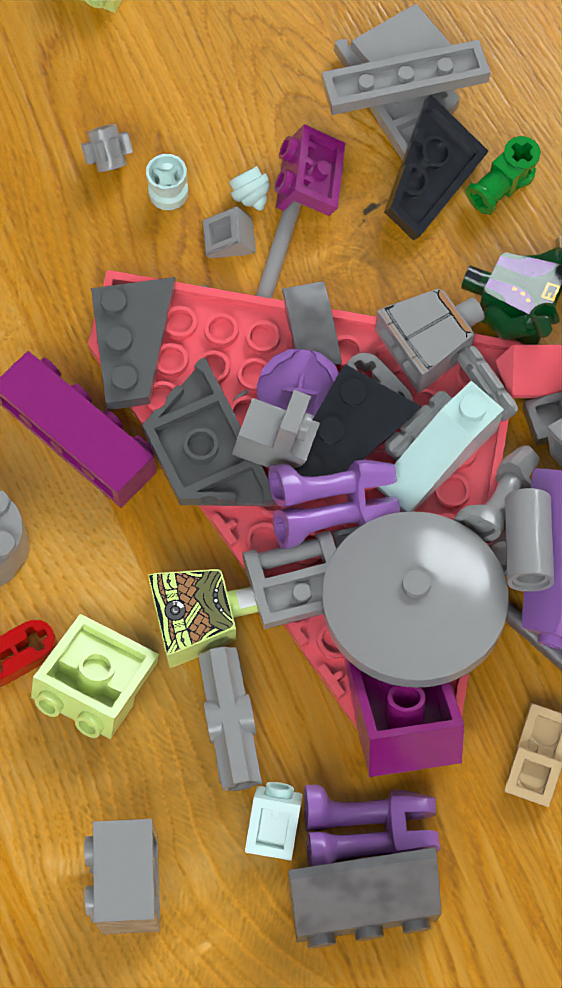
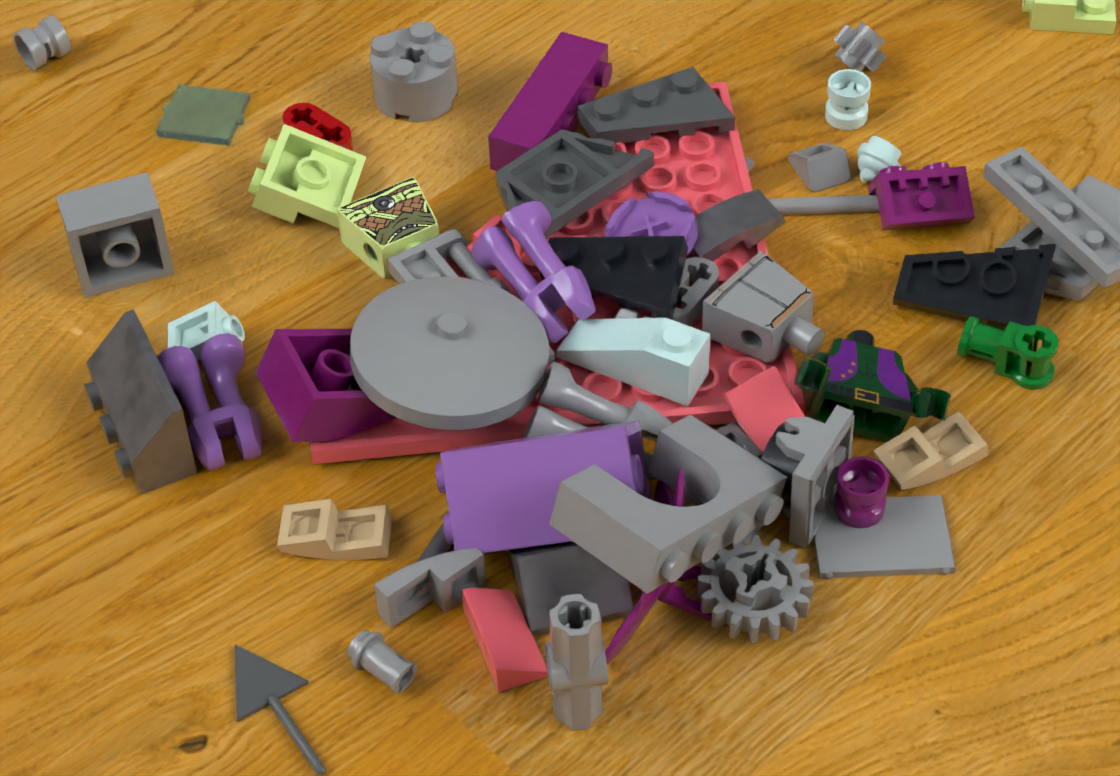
camera: 75 degrees right, 20 degrees down
(229, 719) = (297, 281): light grey piece -> none
(276, 434) = (581, 200): light grey brick -> none
(485, 378) = (730, 372): light grey axle -> none
(529, 540) = (539, 410): light grey pin -> none

